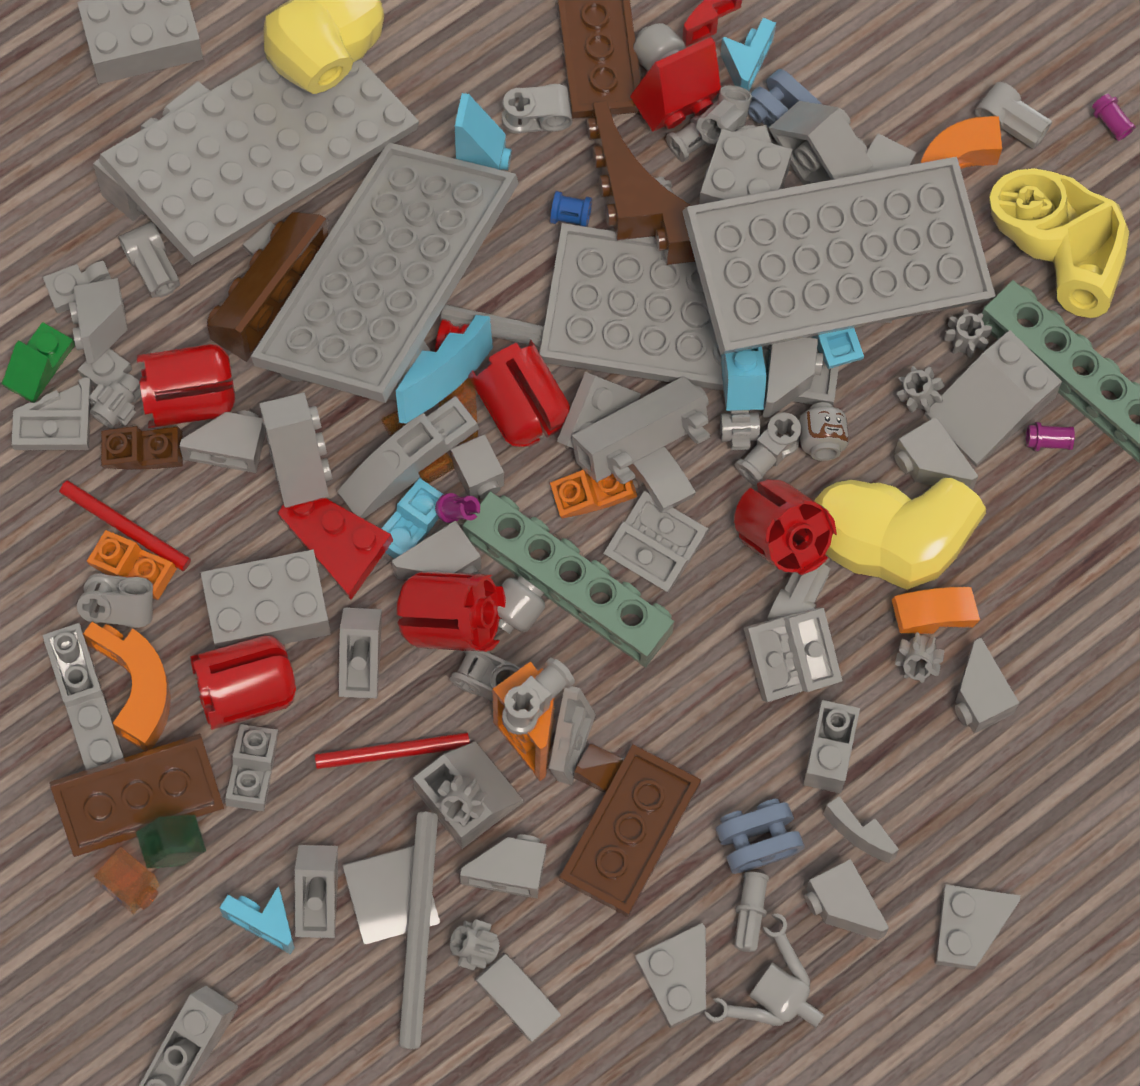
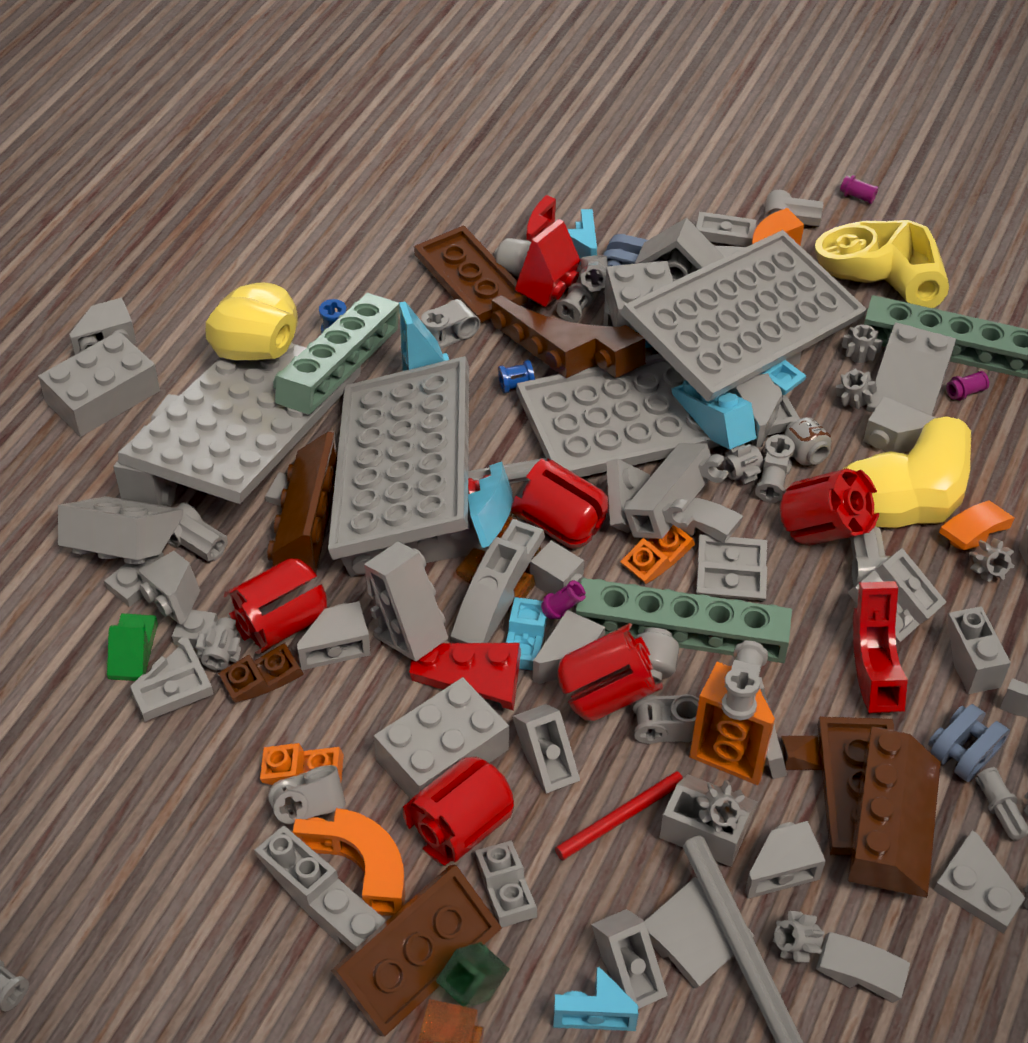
camera: 25 degrees left, 20 degrees down
(77, 225) = (116, 528): none -> light grey slope
(124, 525) = (274, 738): red bar -> none
(391, 105) = (336, 353): none -> sand green brick
(419, 49) = (328, 313): none -> blue bush
(631, 876) = (895, 814): none -> reddish brown slope
(730, 705) = (875, 649): none -> red arch
(918, 107) = (726, 229): none -> light grey plate

